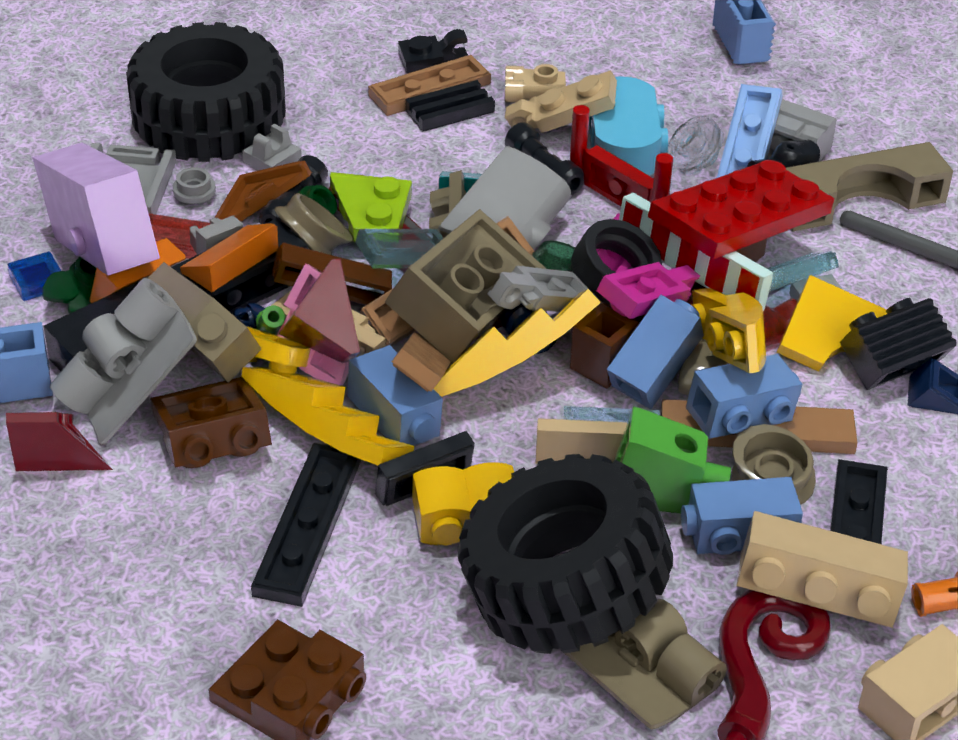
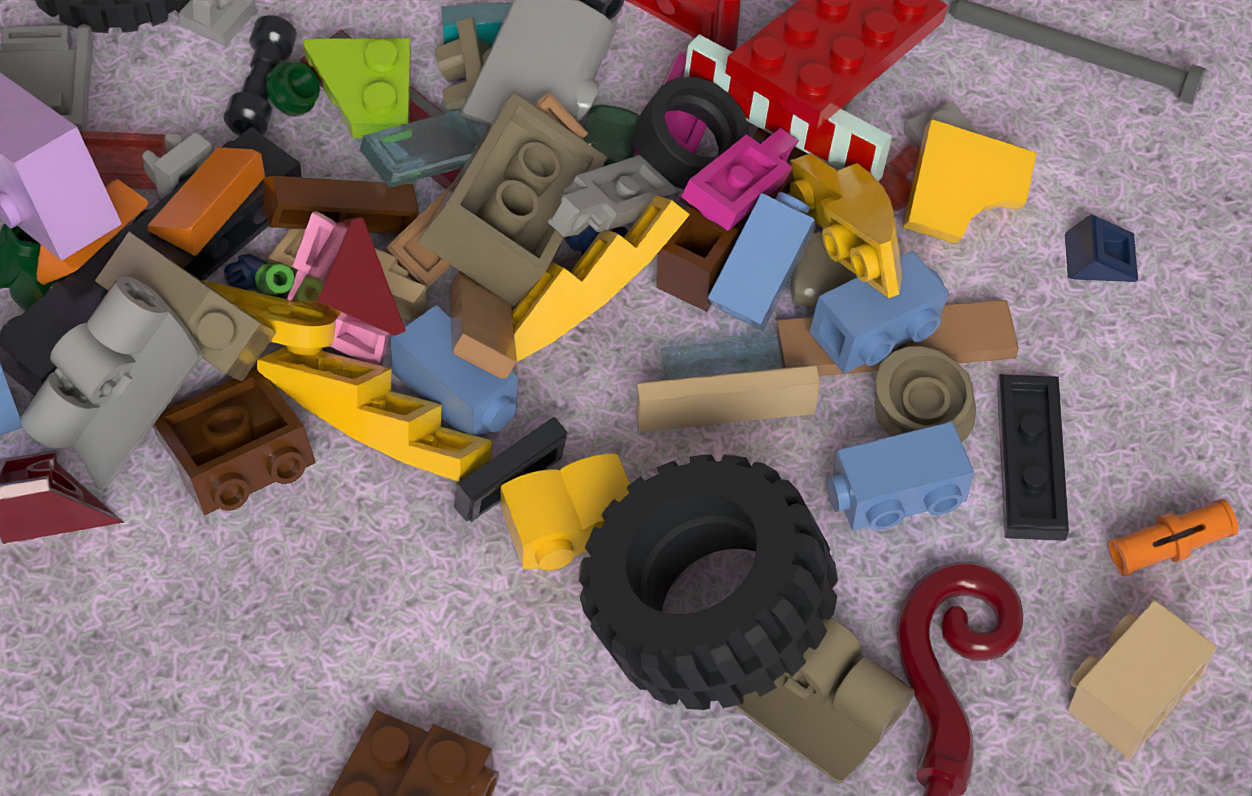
camera: 10 degrees left, 15 degrees up
(194, 186) = (128, 67): light grey plate -> none
(259, 187) = (211, 76): dark orange tile -> none
(305, 526) = (380, 569): black tile -> none
(313, 224) = (300, 126): dark tan piece -> none
(668, 457) = (798, 423): bright green torso -> none
(802, 267) = (910, 102): clear light blue tile -> none
(823, 569) = (1006, 542): tan brick -> none
(896, 341) = (1048, 200): black brick -> none

